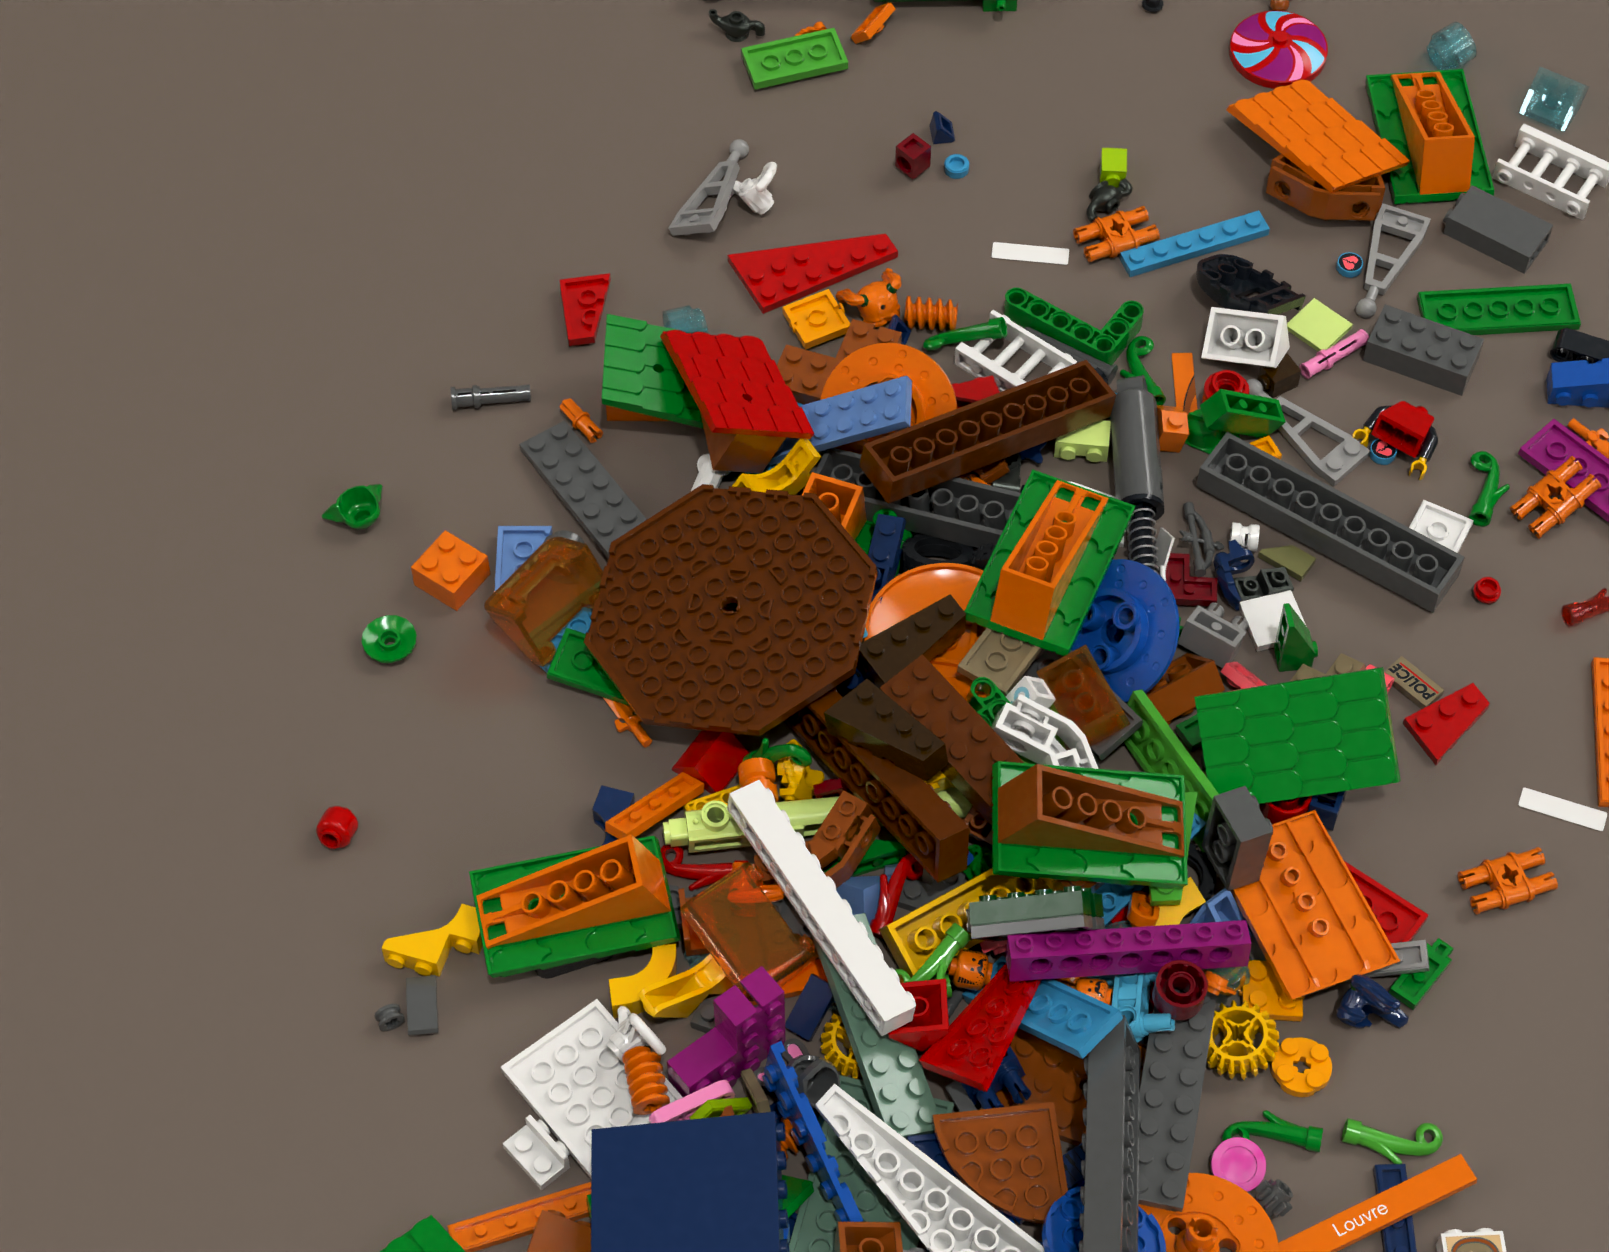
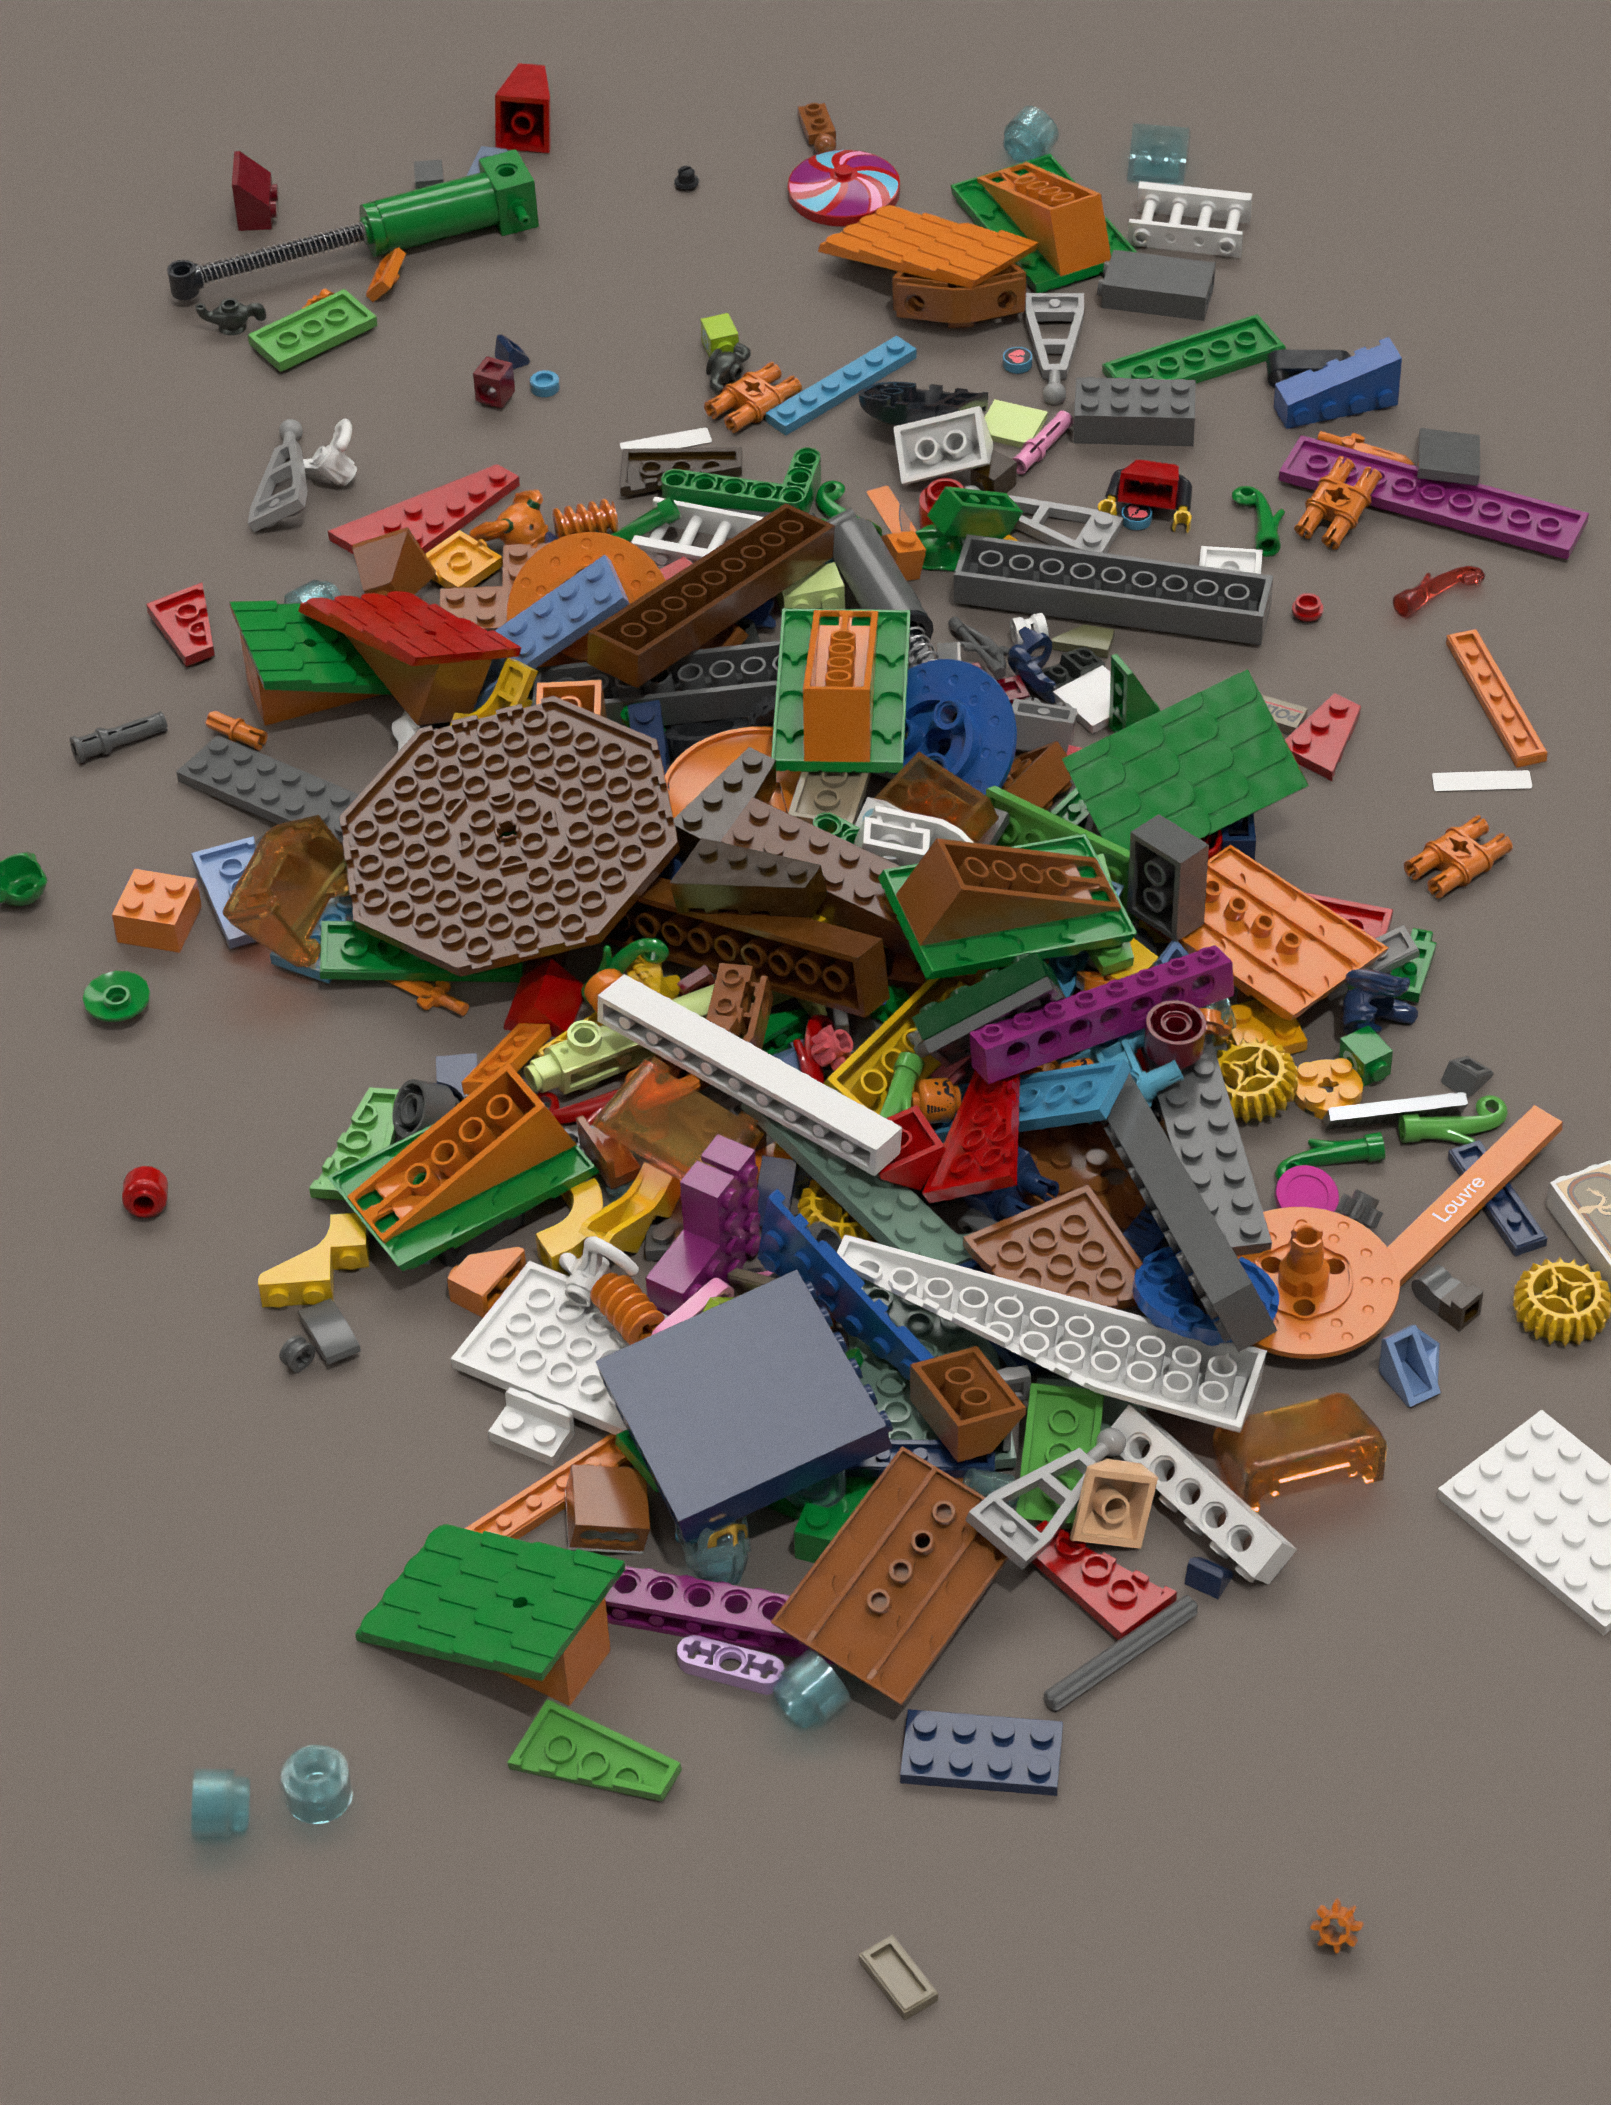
camera: 20 degrees left, 10 degrees down
(523, 838) = (369, 1132): none -> bright green wing
(557, 1002) = (484, 1278): none -> orange slope
(572, 831) = (420, 1106): none -> dark grey piece
(756, 312) = (392, 563): none -> dark orange slope
(909, 891) = (831, 1047): none -> coral gear
(1004, 273) = (645, 466): none -> dark brown wing
(1345, 1049) = (1367, 1054): none -> green brick
(1346, 1111) = (1391, 1110): none -> tile
(1422, 1095) = (1466, 1075): none -> dark grey slope

